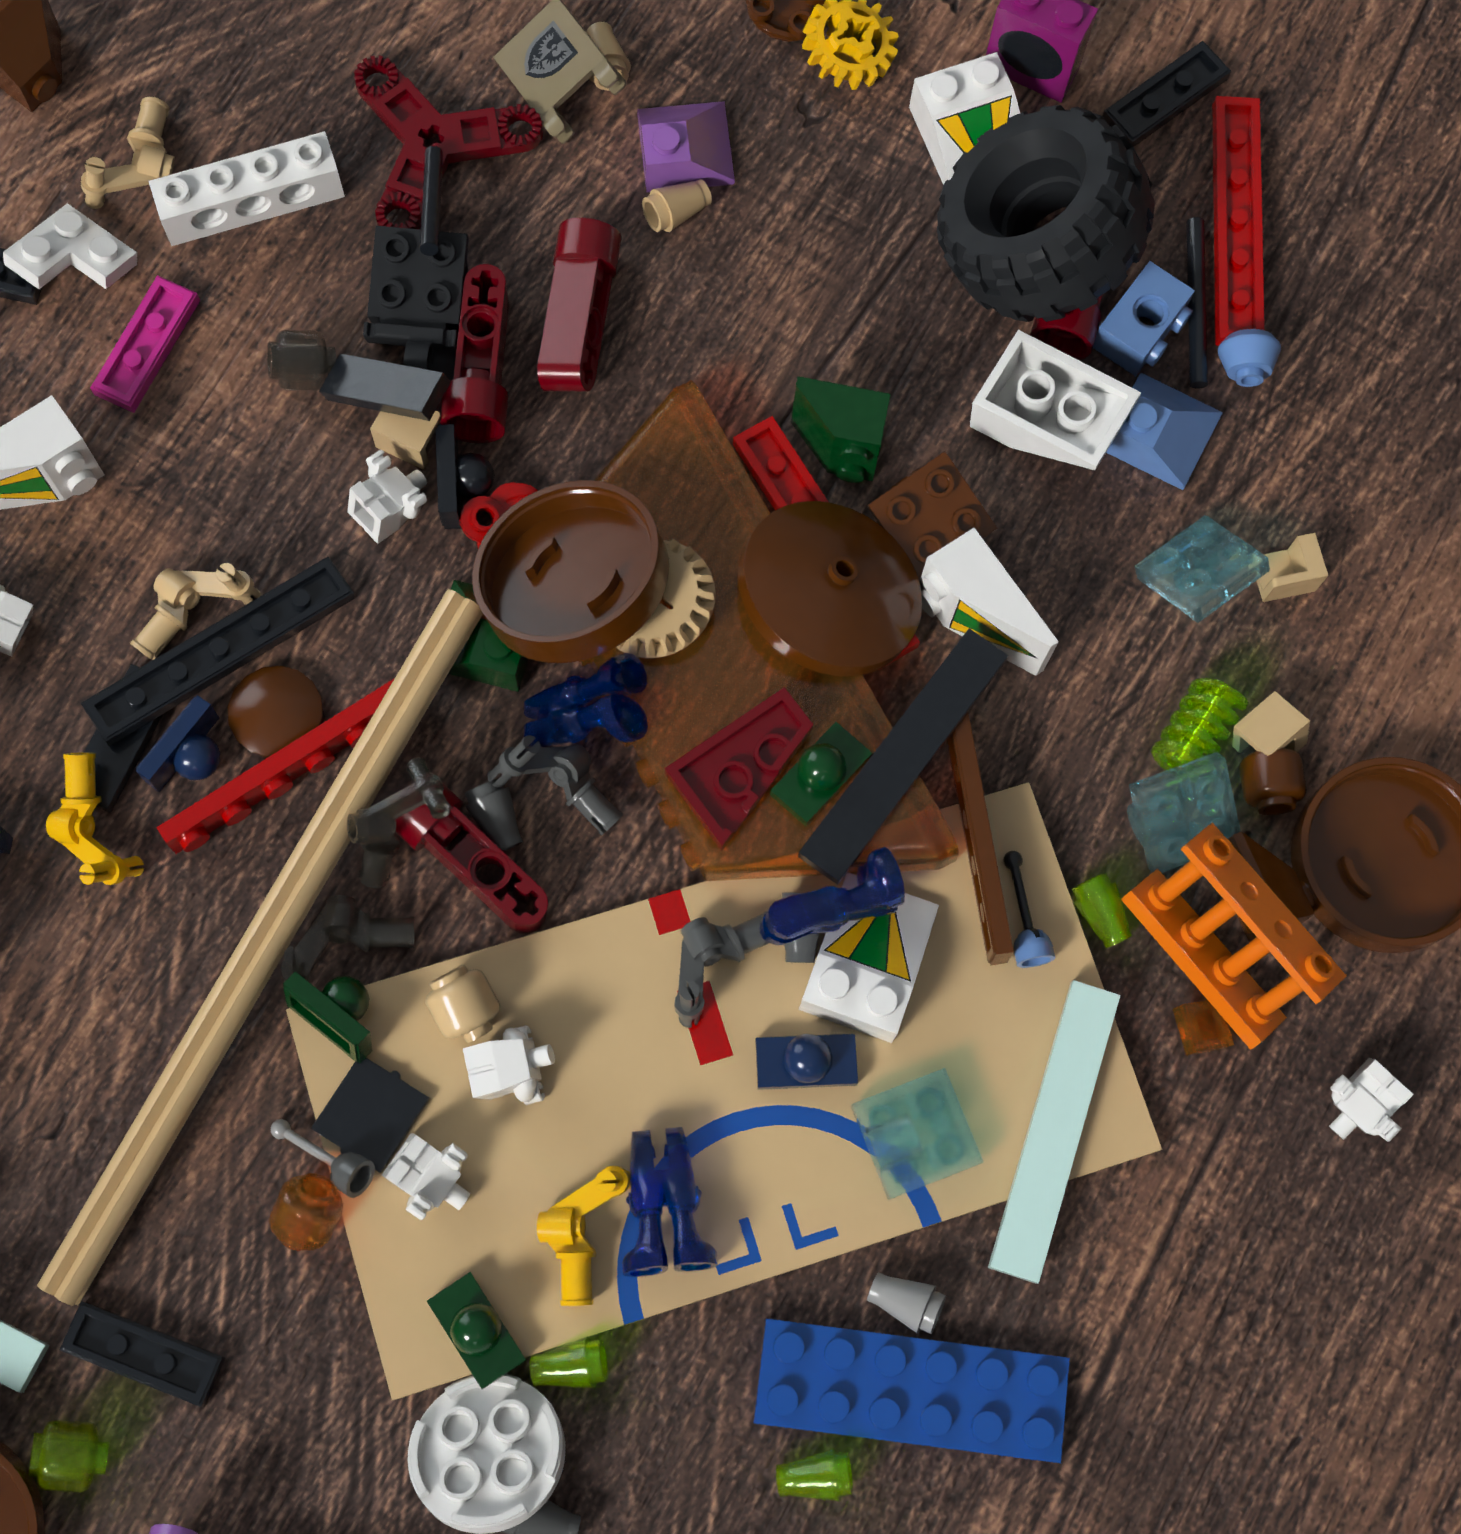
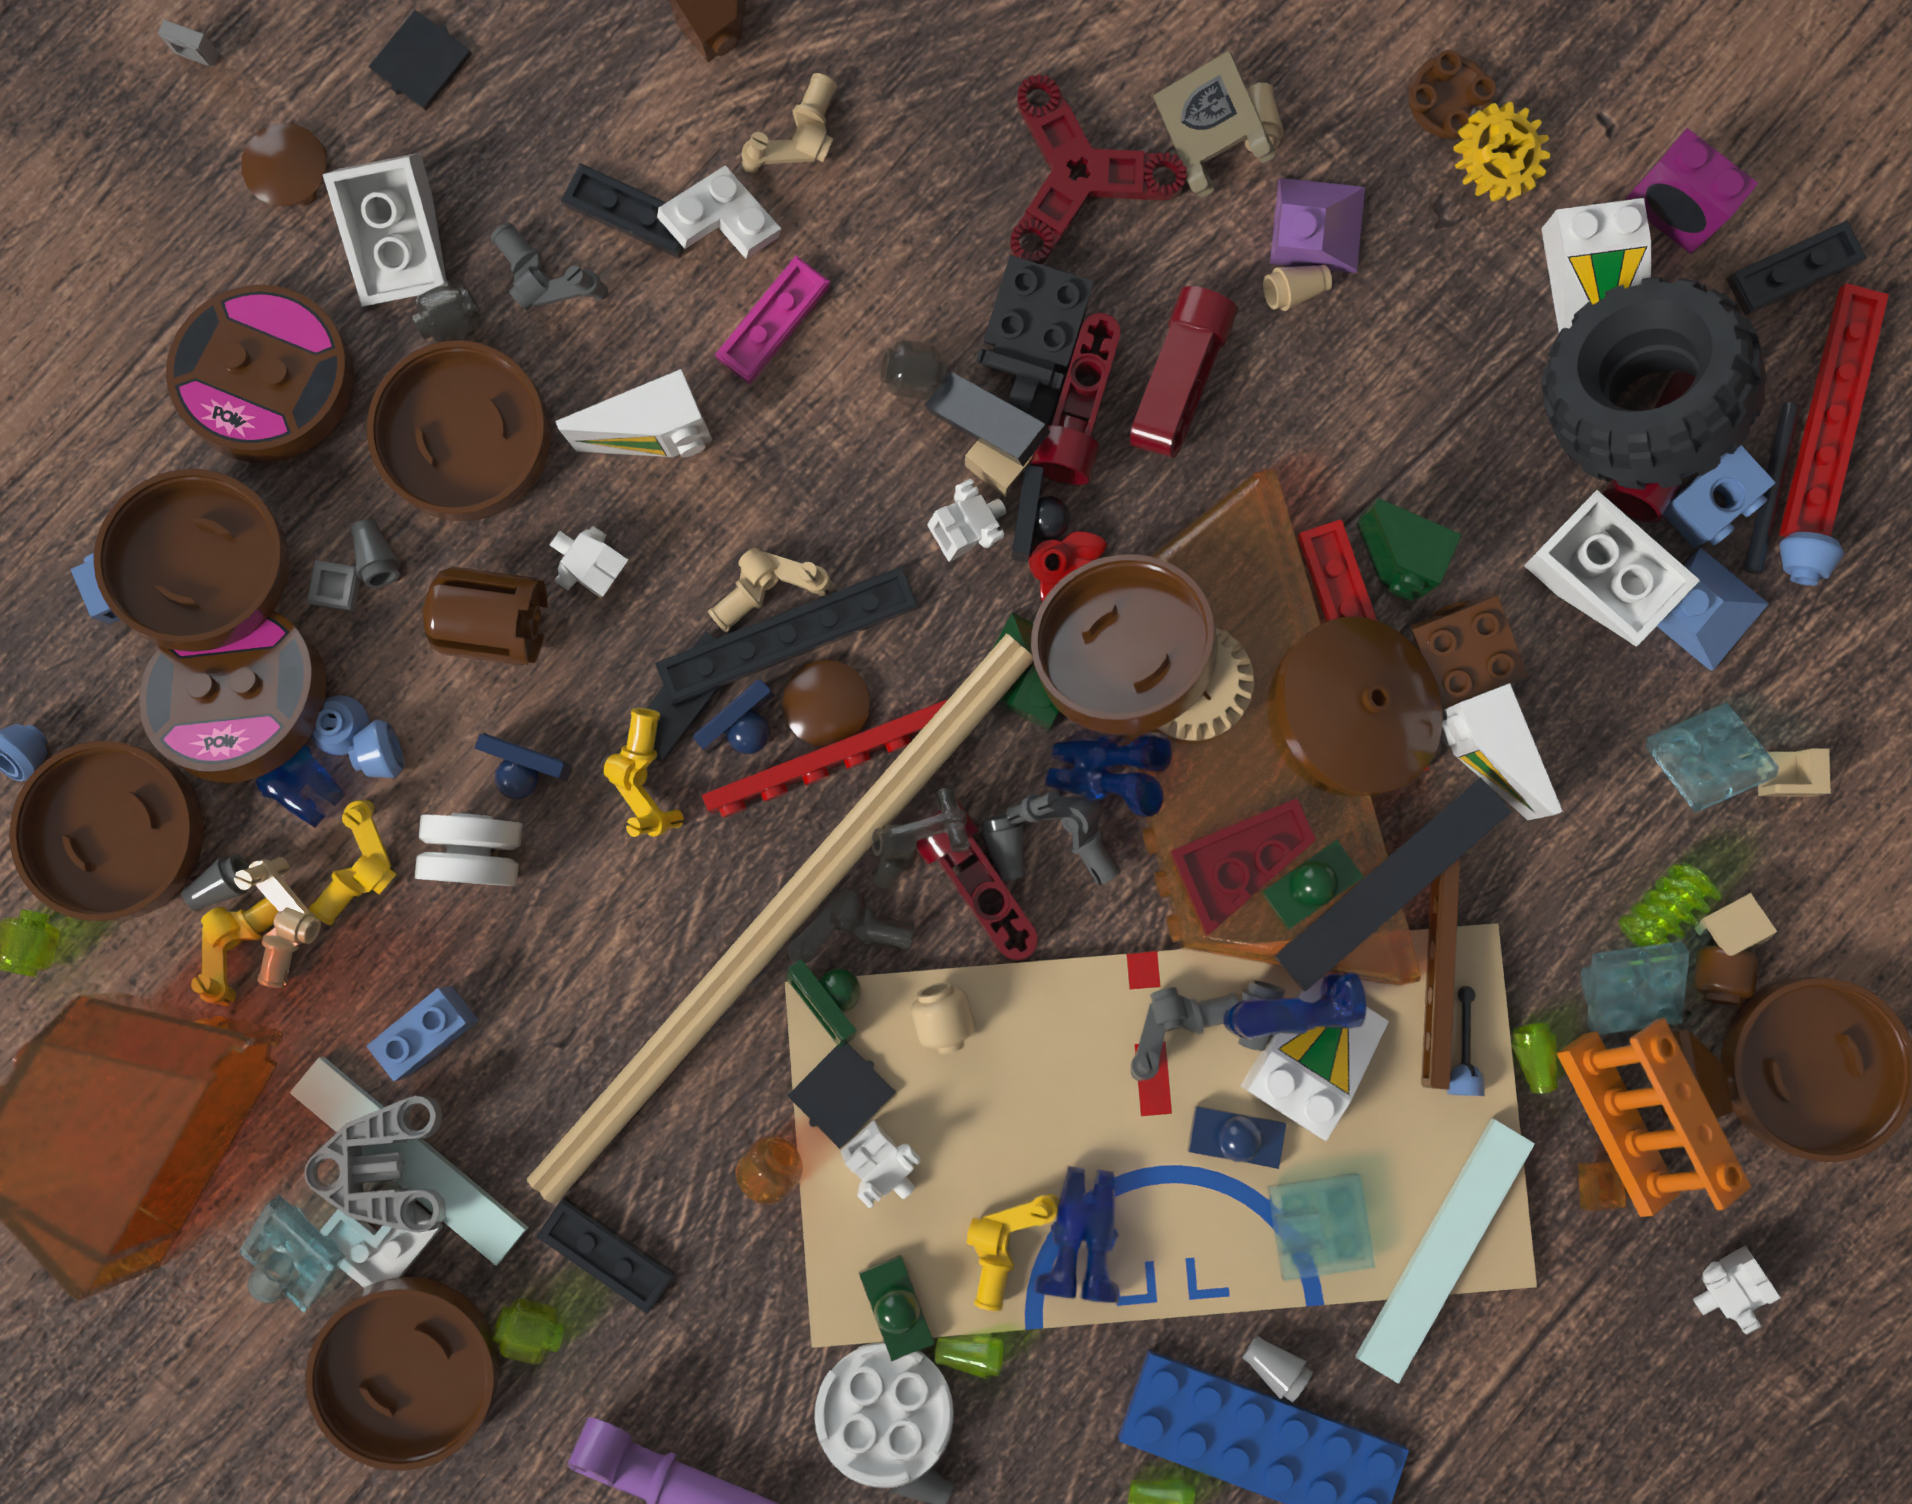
camera: 20 degrees right, 10 degrees up
(247, 188) = (896, 186): white brick -> none
(349, 1171) = (813, 1144): dark grey hinge -> none
(431, 201) = (1067, 240): black bar -> none
(508, 1066) = (971, 1083): white piece -> none

